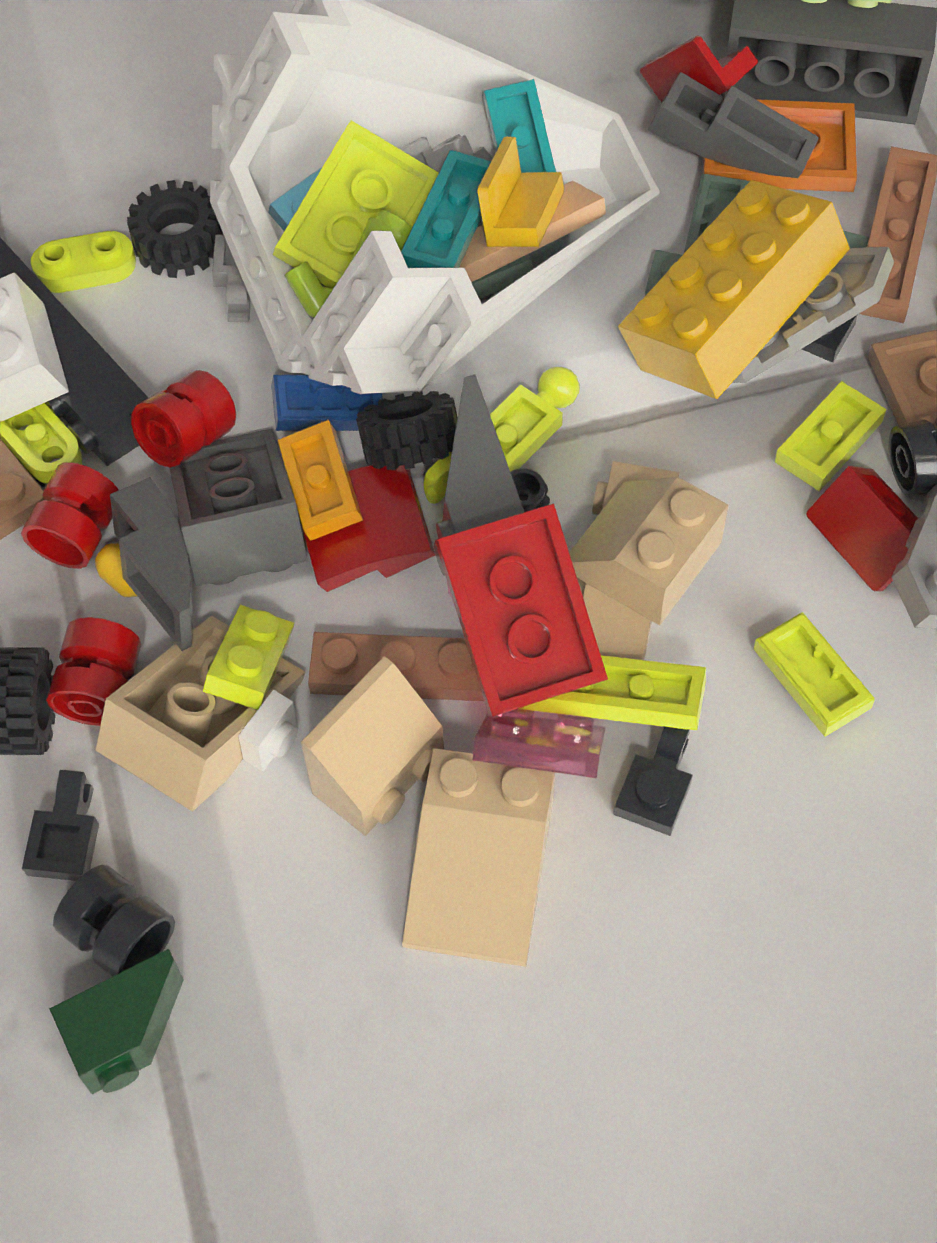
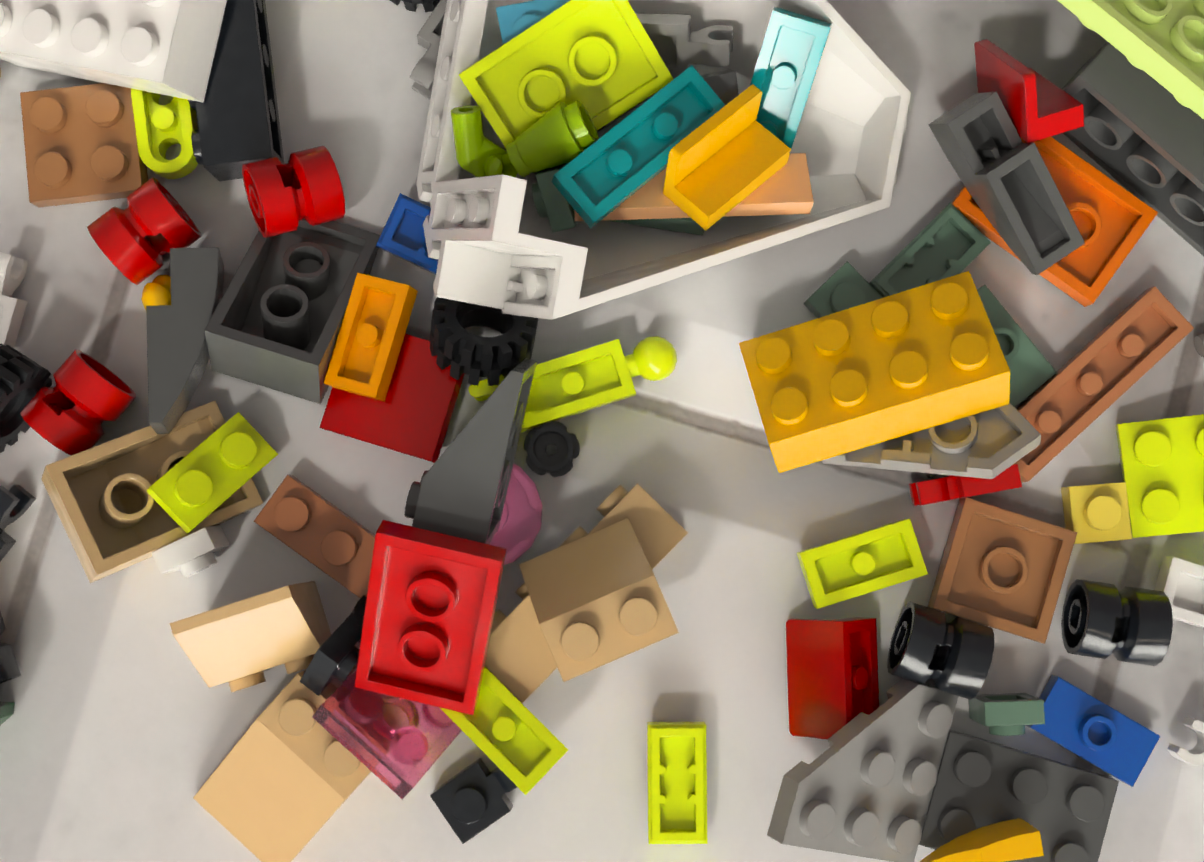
camera: 30 degrees right, 25 degrees up
(460, 712) = (338, 653): none -> black plate
(867, 328) = (960, 487): none -> red plate

